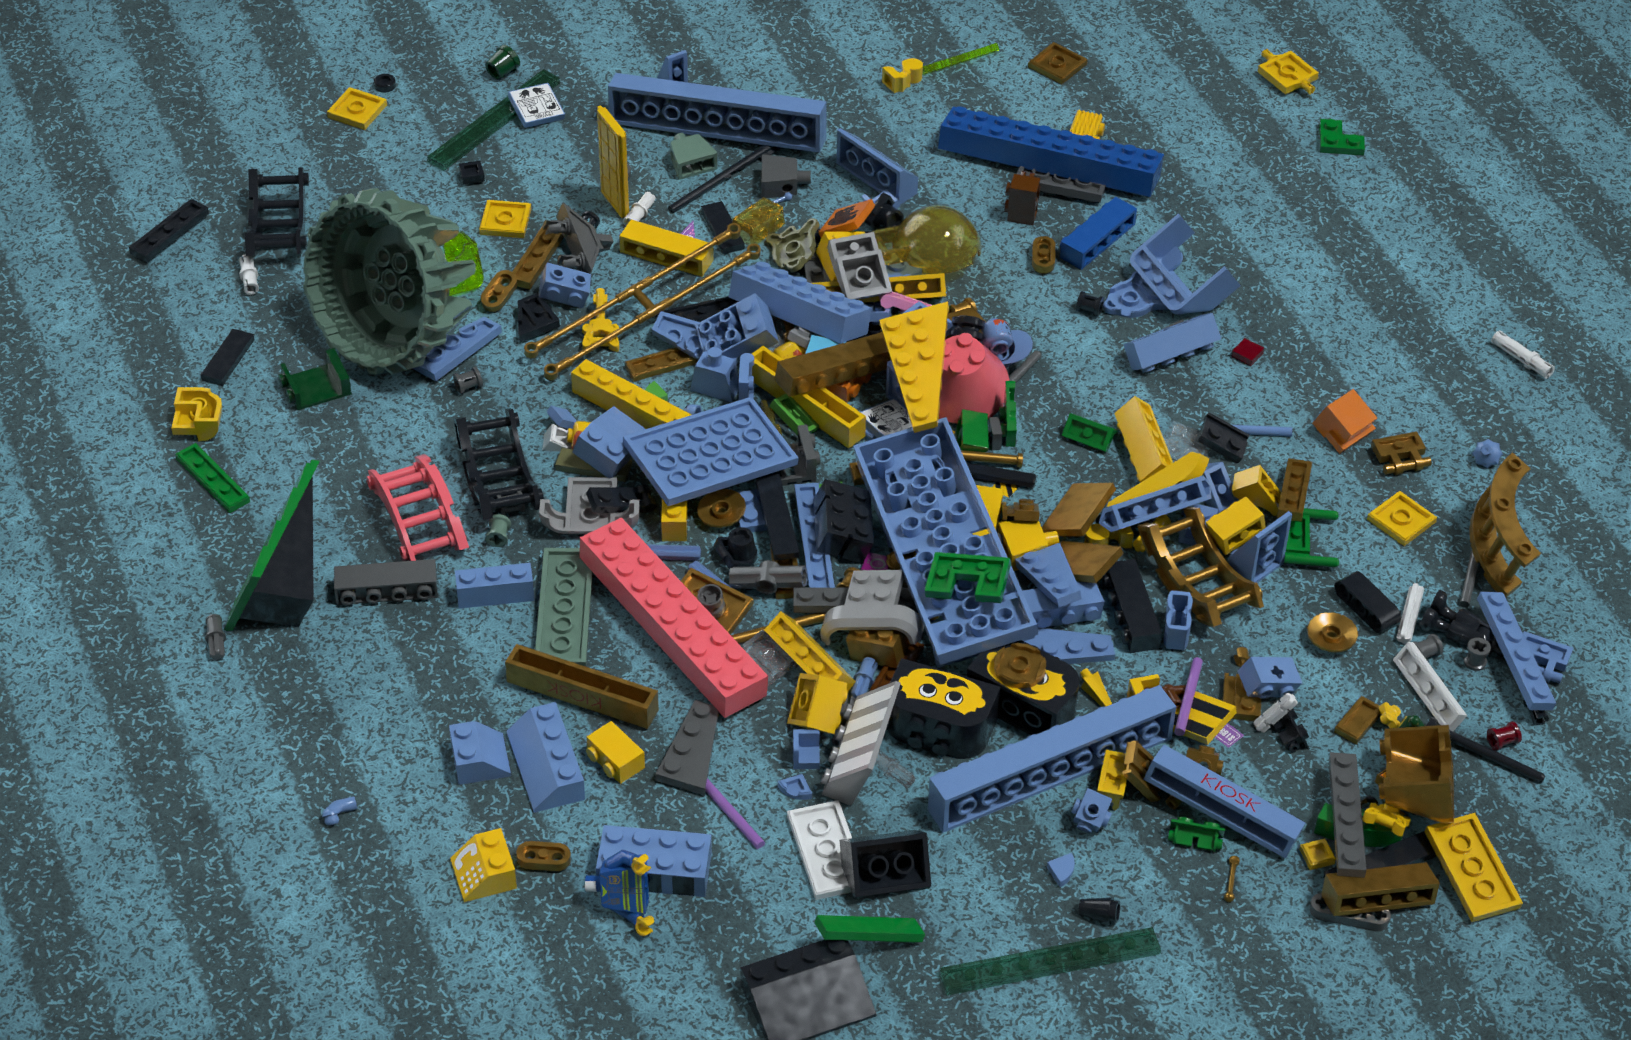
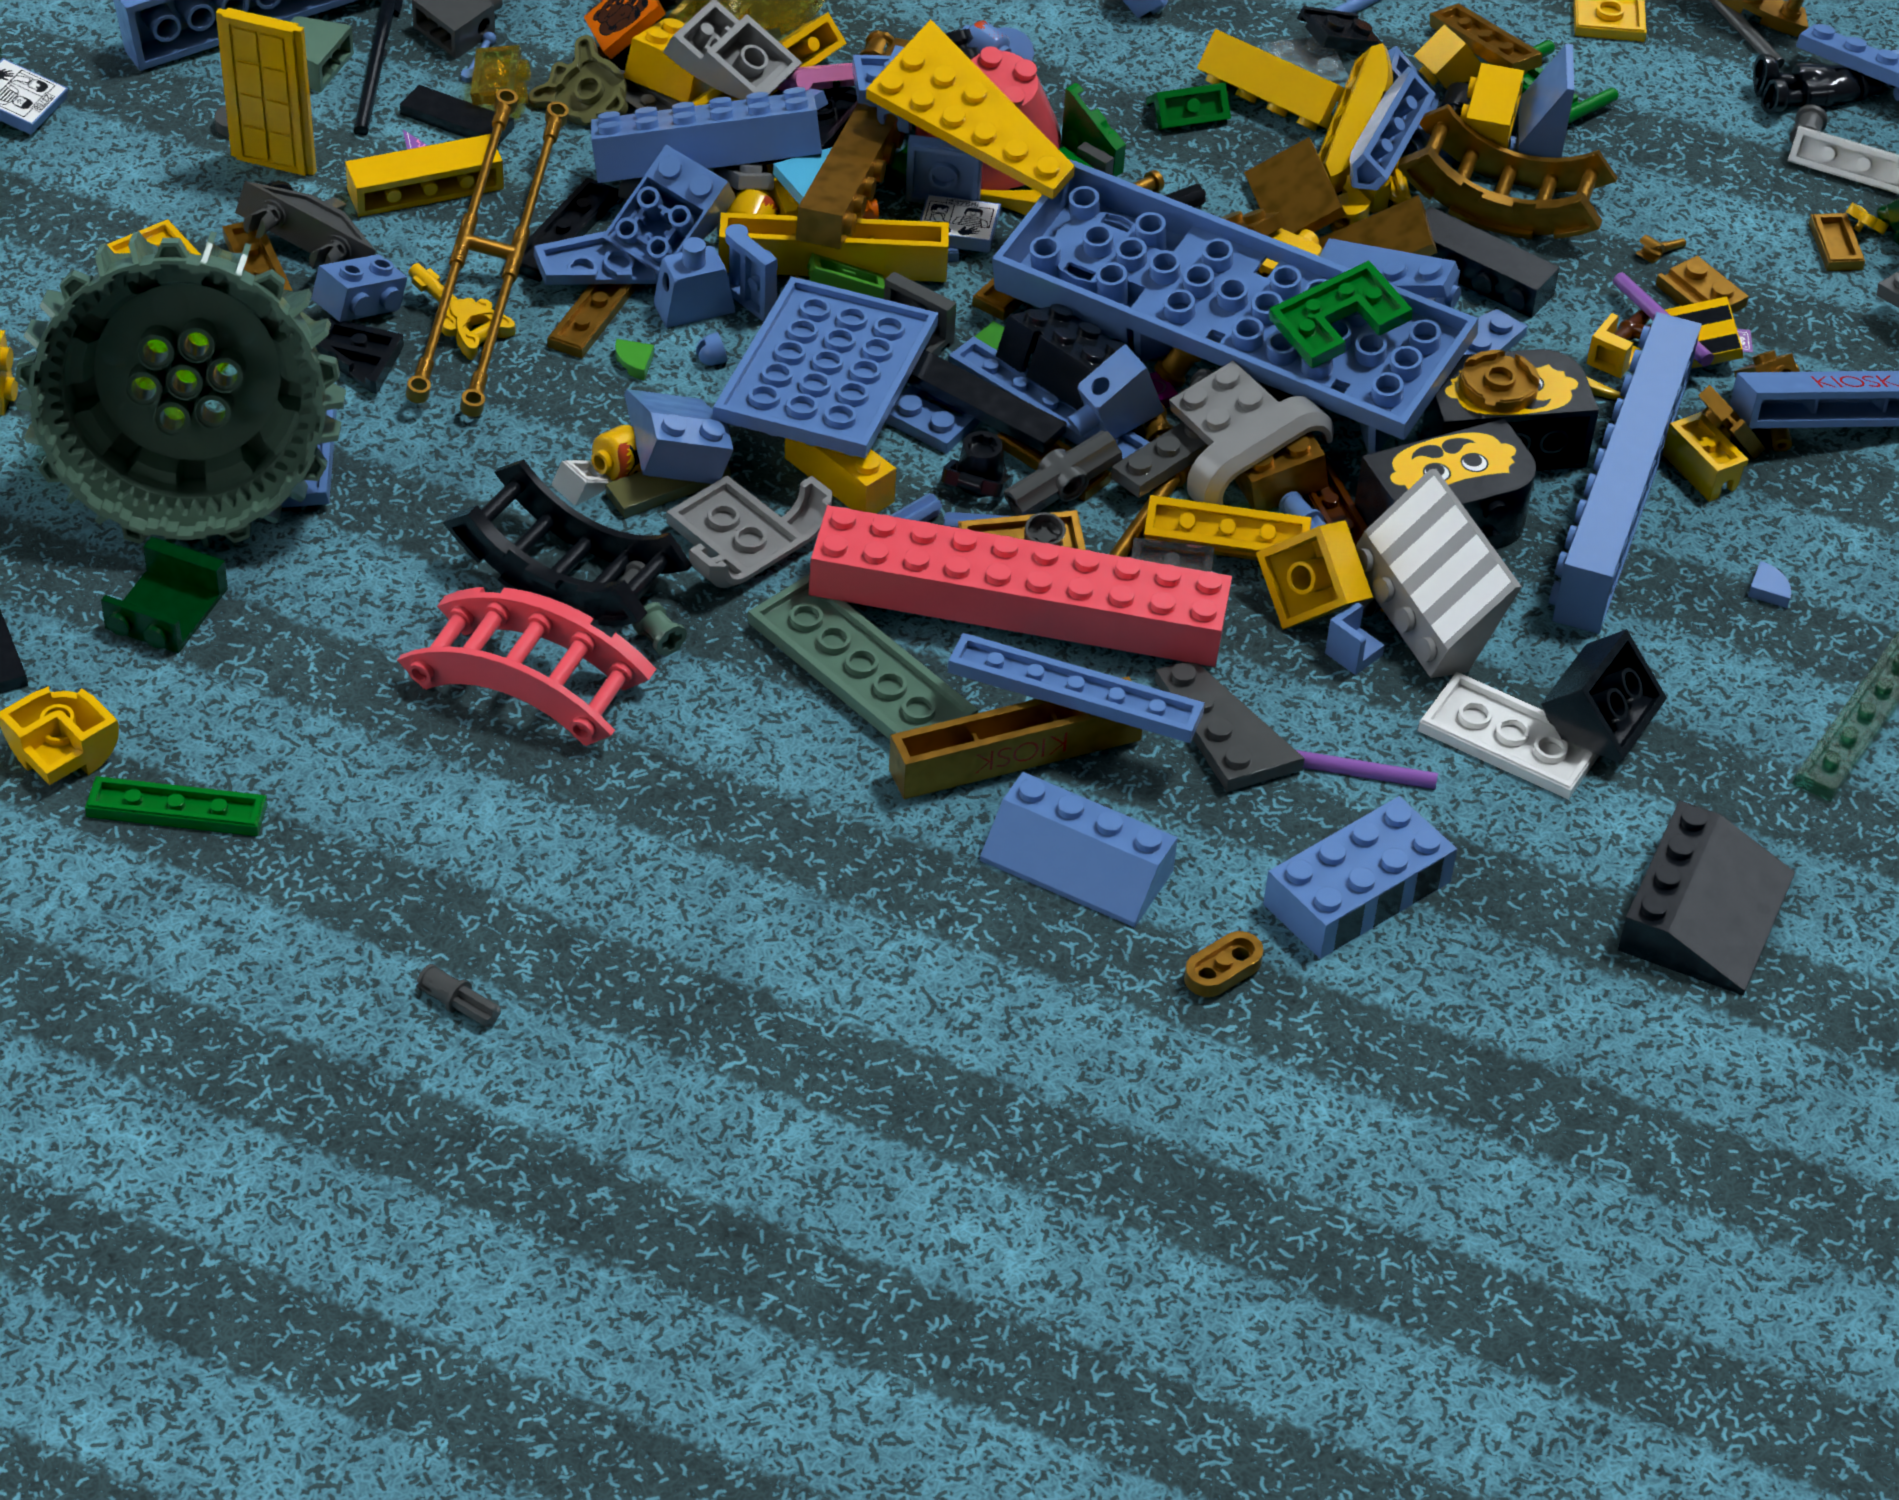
camera: 45 degrees left, 0 degrees up
(282, 576) = (442, 828): black piece -> none
(337, 807) = (900, 1090): medium blue arm -> none
(385, 582) = (600, 780): dark grey brick -> none
(459, 380) = (375, 475): dark grey bush -> none
(471, 172) = (34, 224): black plate -> none
(478, 752) = (985, 906): medium blue slope -> none
(484, 866) = (1176, 1023): yellow slope -> none
(494, 585) = (747, 694): medium blue brick -> none
(561, 417) = (560, 448): medium blue tile -> none
(611, 390) = (600, 377): yellow brick -> none
(615, 752) = (1151, 787): yellow brick -> none
(618, 498) = (768, 496): black plate -> none
(618, 678) = (1076, 687): none -> medium blue plate
(624, 888) = (1384, 920): torso -> none
(639, 209) = (326, 152): white axle -> none
(721, 508) = (907, 434): pearl gold dish -> none
(795, 786) = (1390, 689): medium blue tile -> none
(830, 553) = (1116, 396): none -> medium blue torso
(869, 928) = (1692, 778): green tile -> none
(1098, 805) = (1732, 499): medium blue brick -> none
(1100, 909) = (1866, 598): black cone -> none
(1177, 620) = (1550, 238): medium blue brick -> none
(1187, 830) = (1835, 461): green hinge -> none
(1269, 676) = (1720, 246): medium blue brick -> none
(1275, 712) = (1770, 279): white axle -> none
(1293, 735) = (1773, 280): black hinge -> none
(1332, 632) = (1706, 166): pearl gold dish -> none
(1367, 602) = (1695, 115): black beam -> none
(1410, 613) = (1745, 104): white axle -> none
(1476, 657) = (1862, 103): dark grey bush -> none

